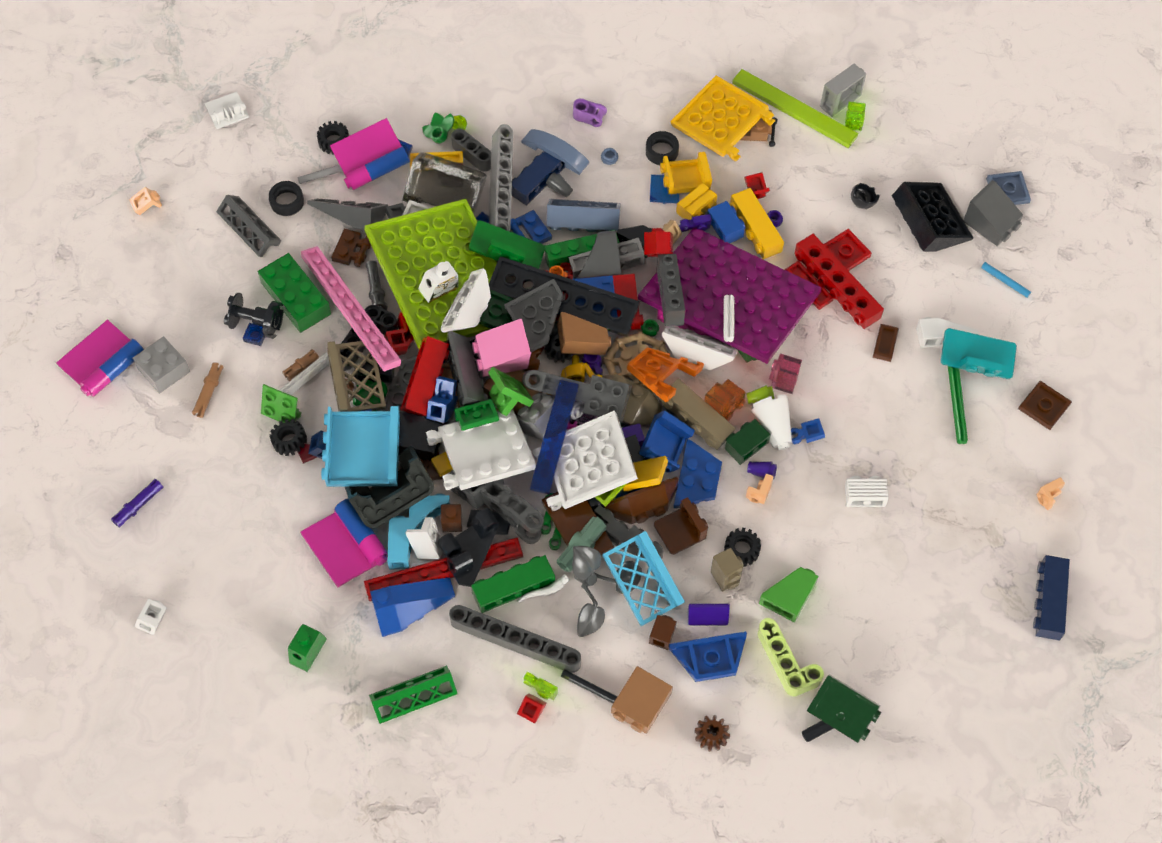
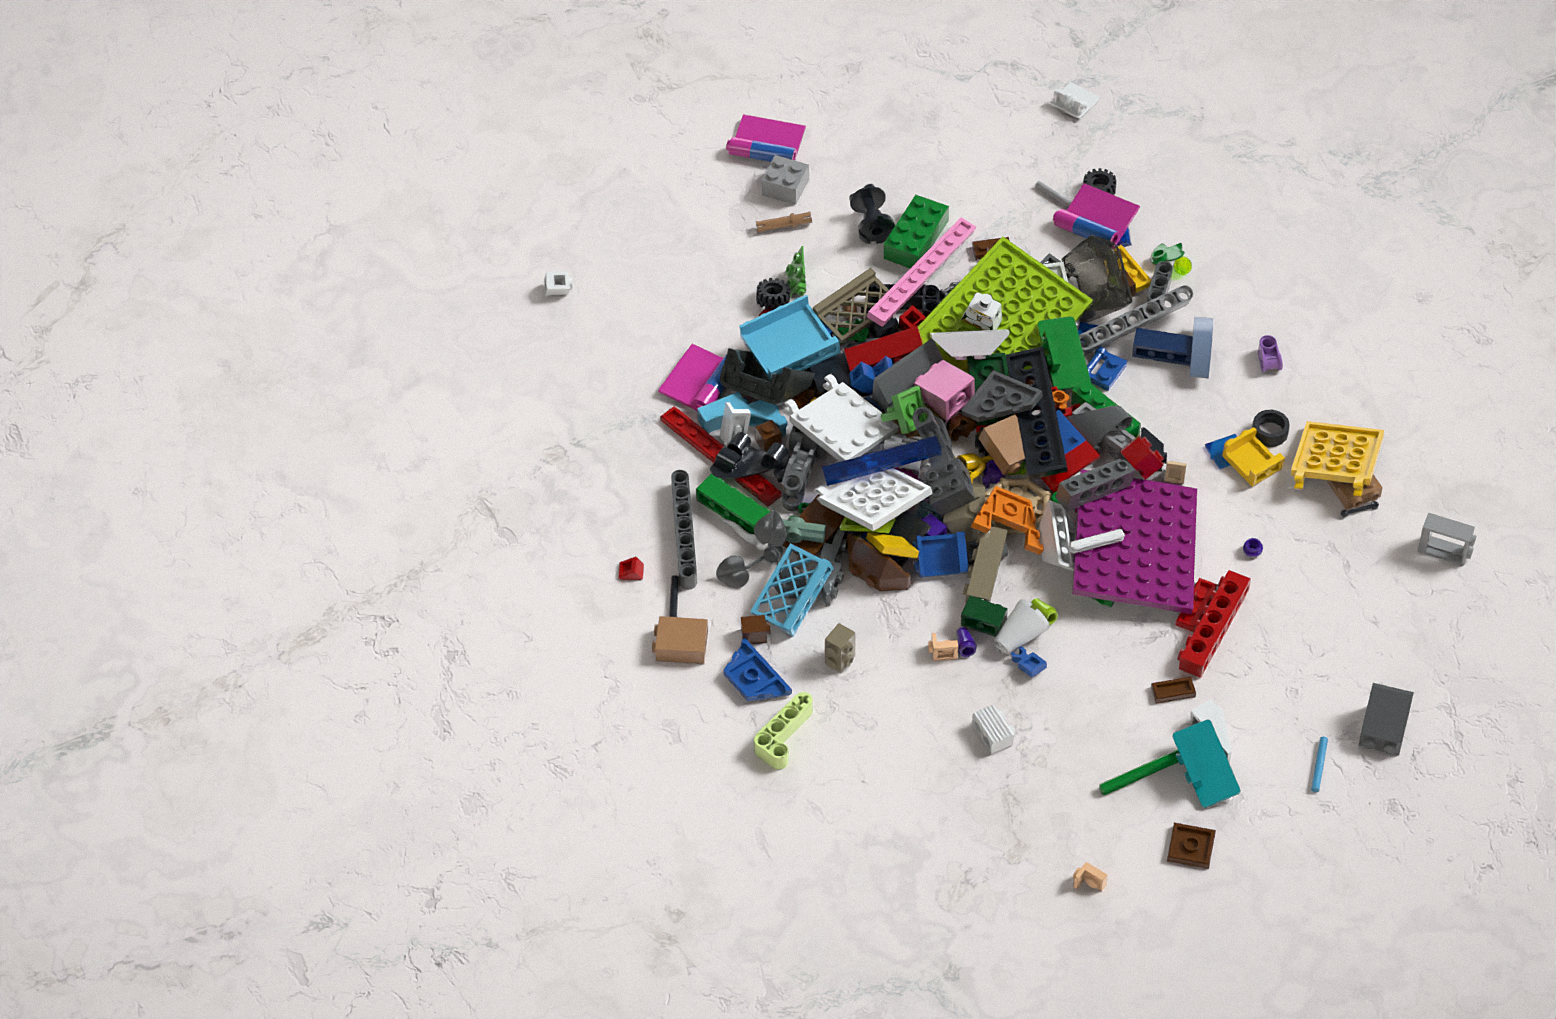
camera: 65 degrees right, 10 degrees down
(130, 509) = (652, 228): dark purple pin -> none
(144, 200) = (939, 91): light nougat bracket -> none
(248, 220) = (965, 170): dark grey fence -> none
(254, 335) = (853, 226): clear blue plate -> none
(285, 187) = (1010, 193): black tyre -> none
(300, 365) = (845, 270): medium nougat pin -> none
(306, 375) = (828, 275): white axle -> none
(307, 645) = (591, 391): green torso -> none
(349, 213) = (1027, 233): dark grey wedge -> none
(405, 603) = (669, 440): blue wedge -> none
(410, 687) = (598, 478): green fence -> none
(476, 415) = (867, 399): green bracket -> none
(543, 688) = (651, 567): clear neon green plate -> none
(558, 184) = (1169, 367): dark grey cone -> none
(583, 215) = (1147, 398): sand blue slope -> none
(609, 156) = (1231, 392): sand blue plate -> none
(682, 527) = (864, 603): reddish brown bracket -> none
(696, 202) = (1223, 479): yellow brick -> none
(698, 475) = (926, 598): blue wing -> none
(700, 222) = (1203, 490): dark purple plate -> none
(708, 614) = (792, 657): dark purple slope -> none
(714, 726) = (680, 702): reddish brown gear -> none
(725, 398) = (1014, 583): clear orange brick -> none
(726, 222) = (1216, 508): blue brick -> none
(748, 537) = (875, 647): black tyre -> none
(757, 185) = (1280, 517): red bracket -> none
(757, 223) = (1236, 531): yellow brick -> none
(785, 373) = (1074, 615): clear pink brick -> none
(790, 593) = (851, 709): bright green slope -> none
(795, 108) = (1402, 516): lime tile -> none
(842, 710) = (754, 781): dark green piece -> none
(848, 249) = (1255, 618): red plate -> none
(855, 115) = (1426, 565): clear neon green brick -> none
(864, 196) = (1331, 606): black hair -> none
(931, 215) = (1348, 670): black slope -> none
(1013, 186) = (1436, 729): sand blue tile -> none
(1052, 597) = (975, 915): dark blue brick -> none

